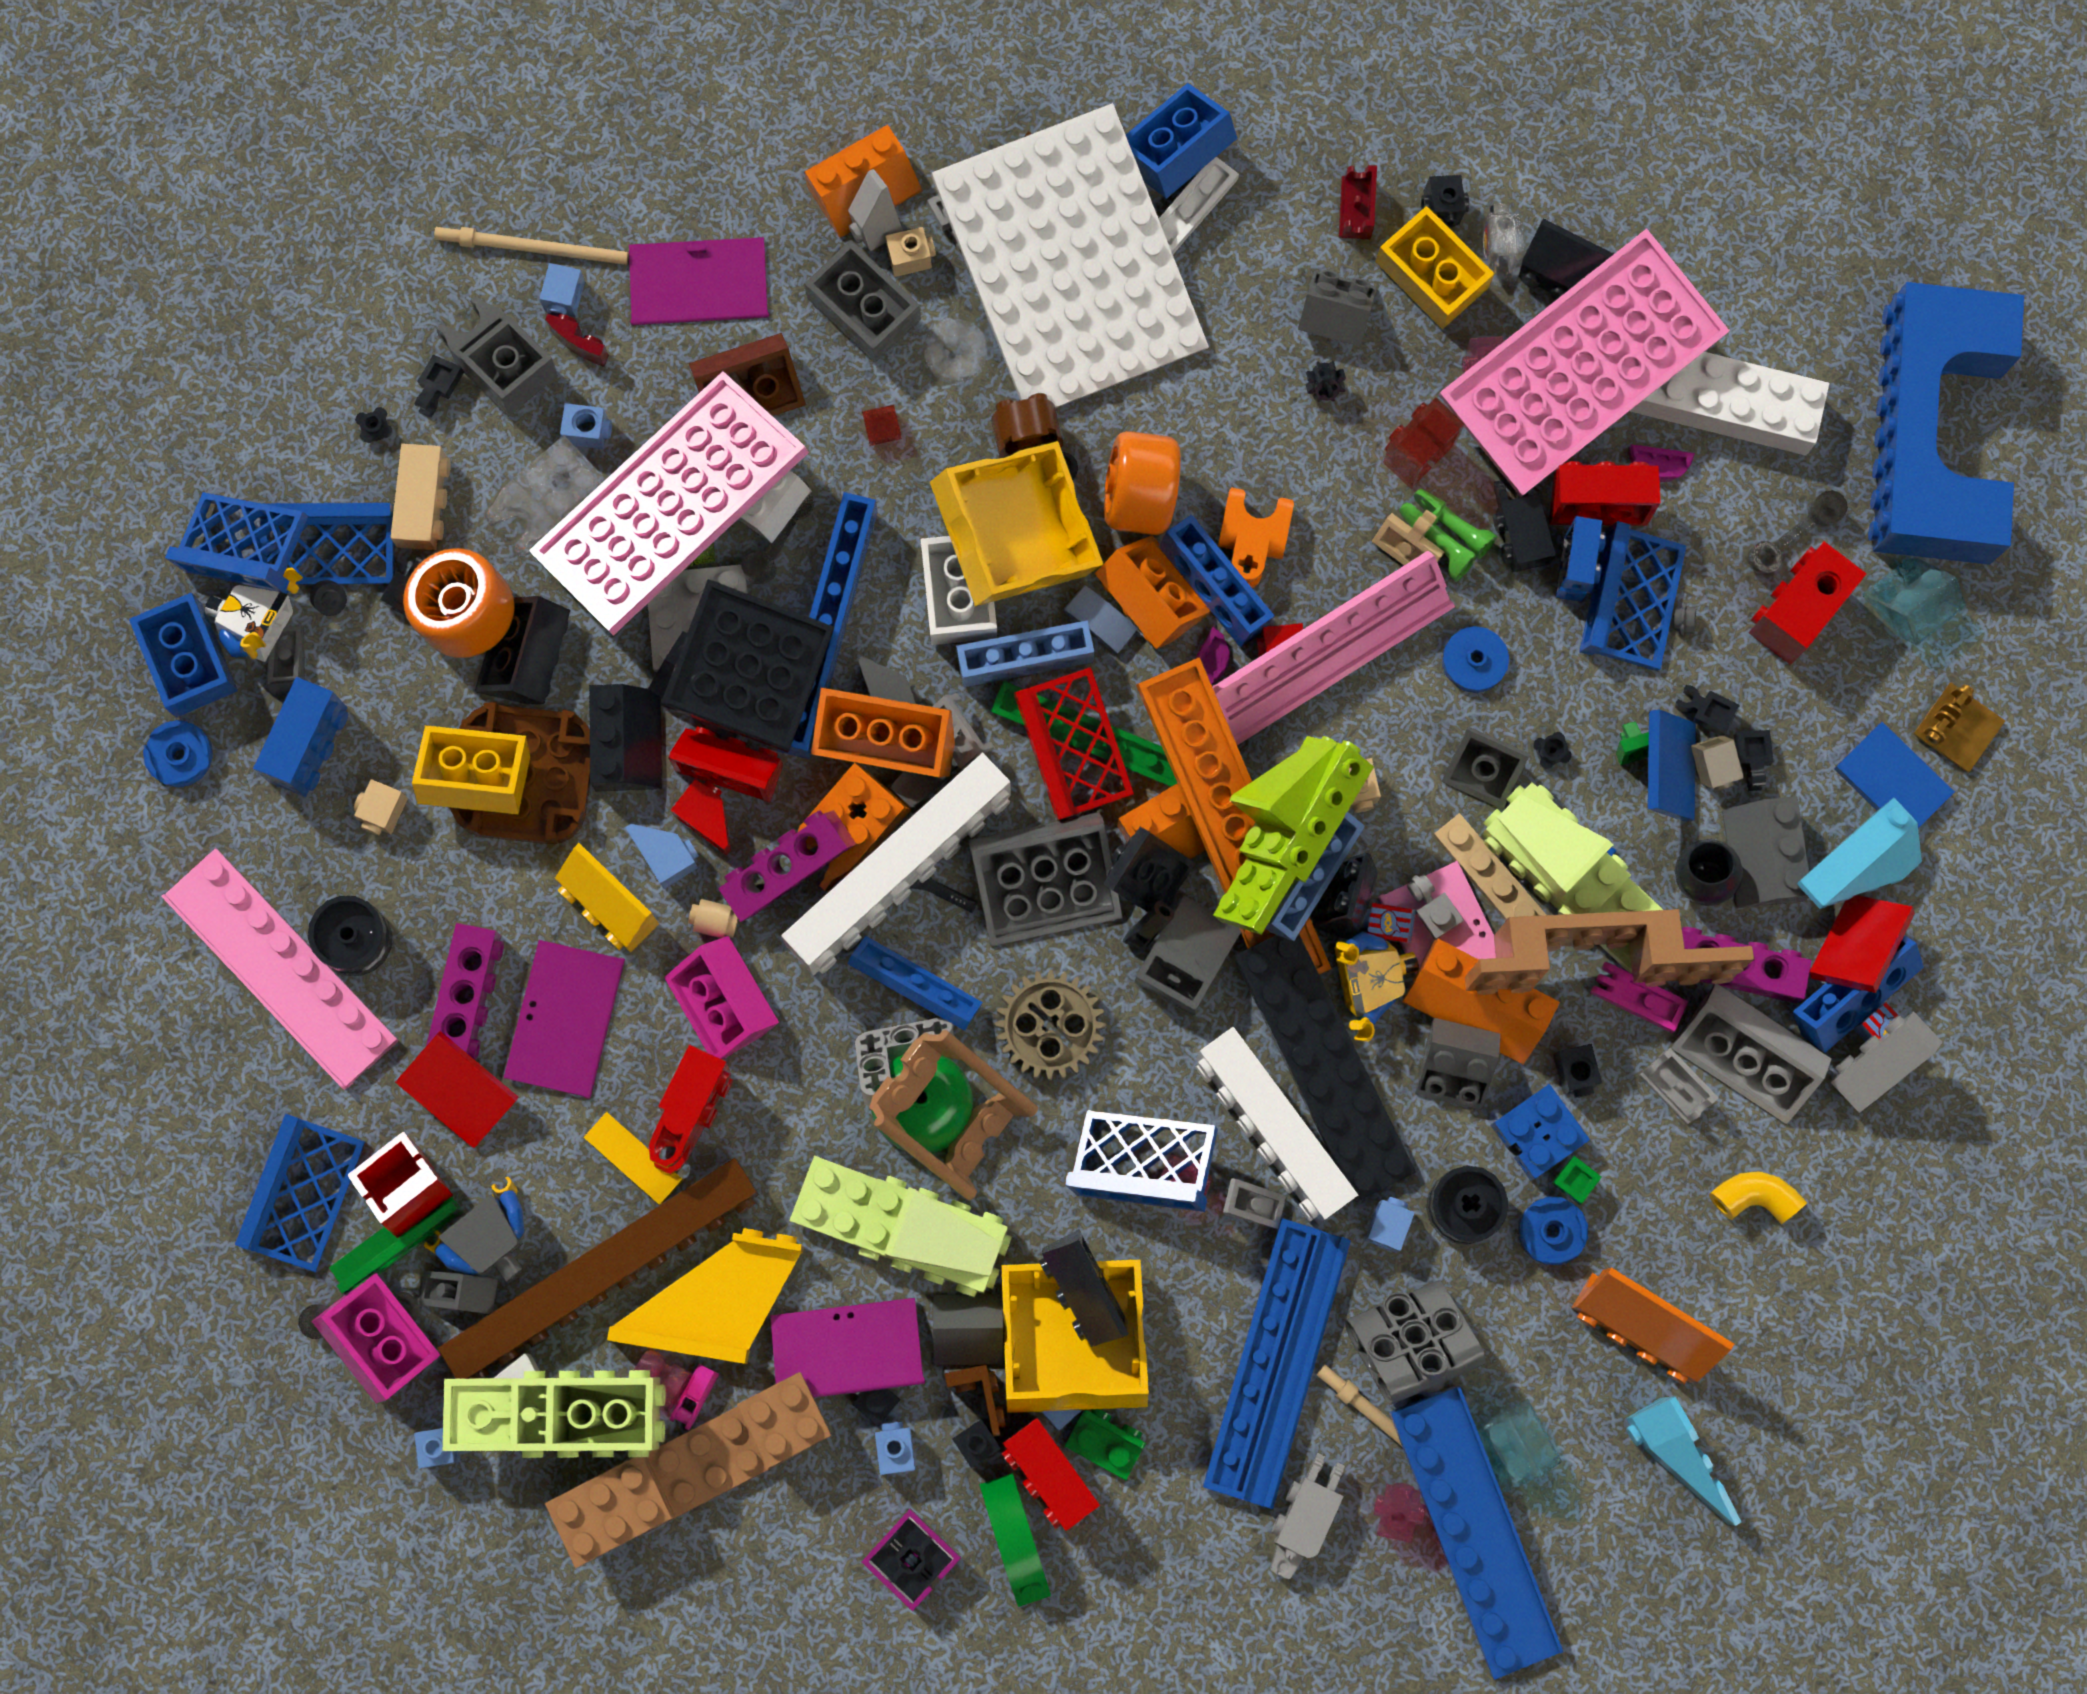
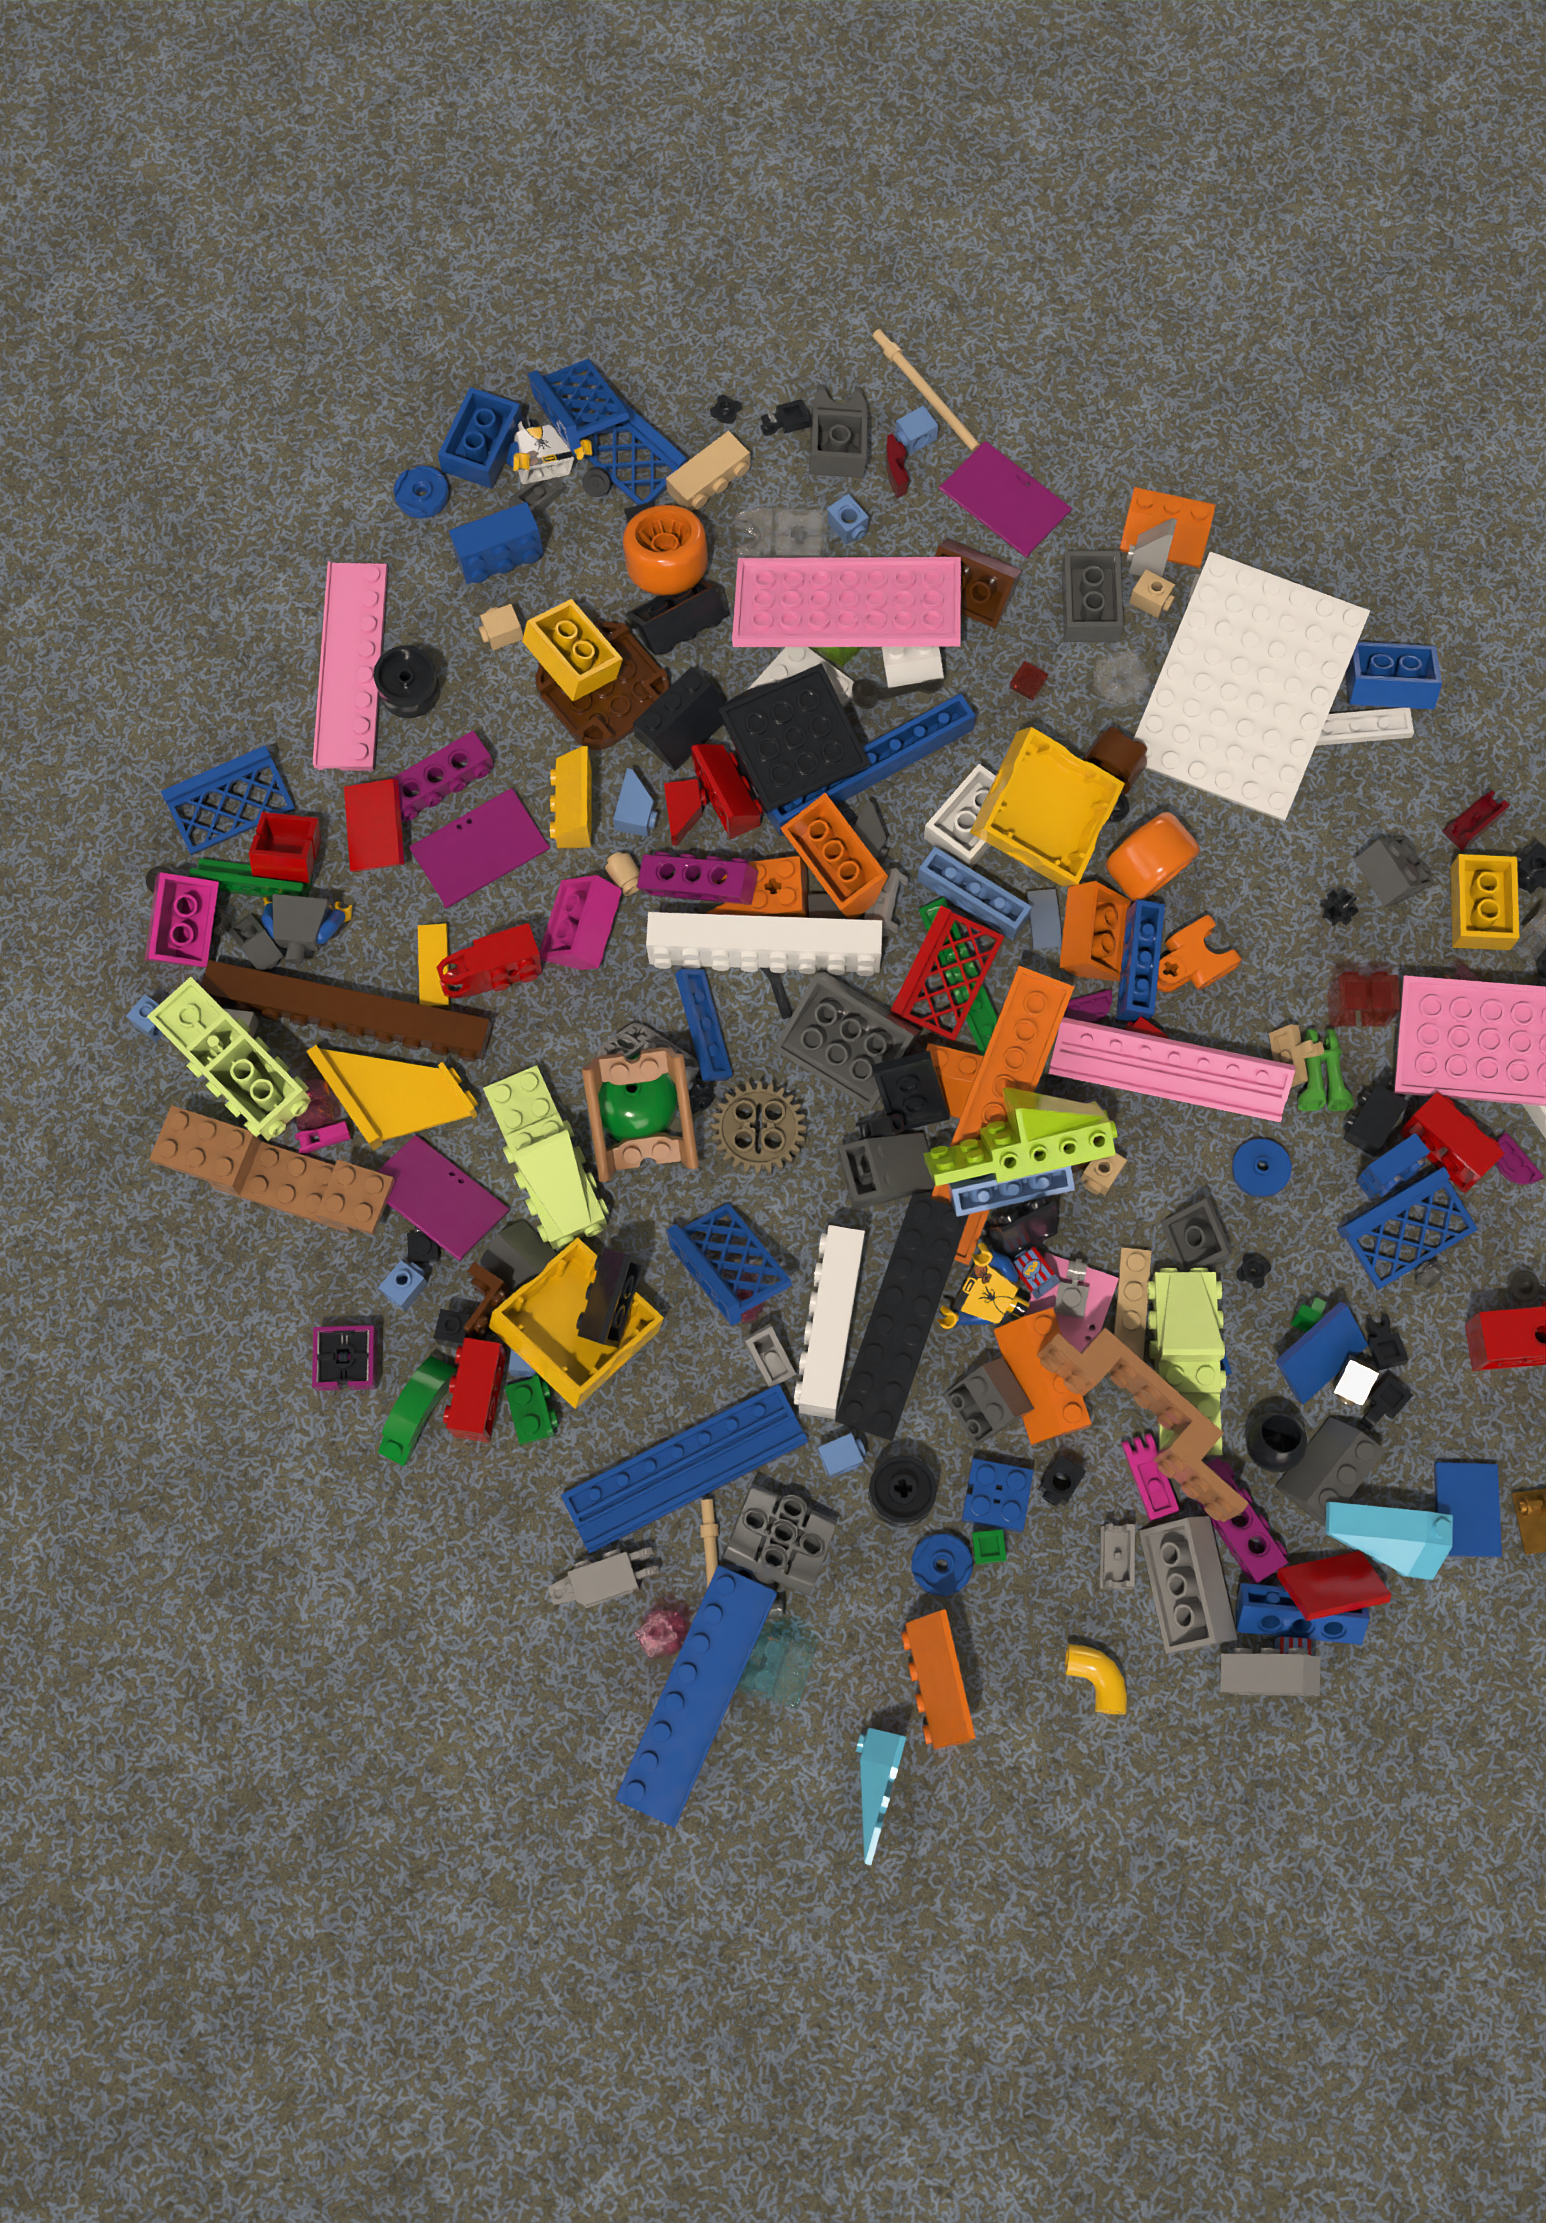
camera: 50 degrees right, 5 degrees down
(977, 1043) = (700, 1098): none -> black plate

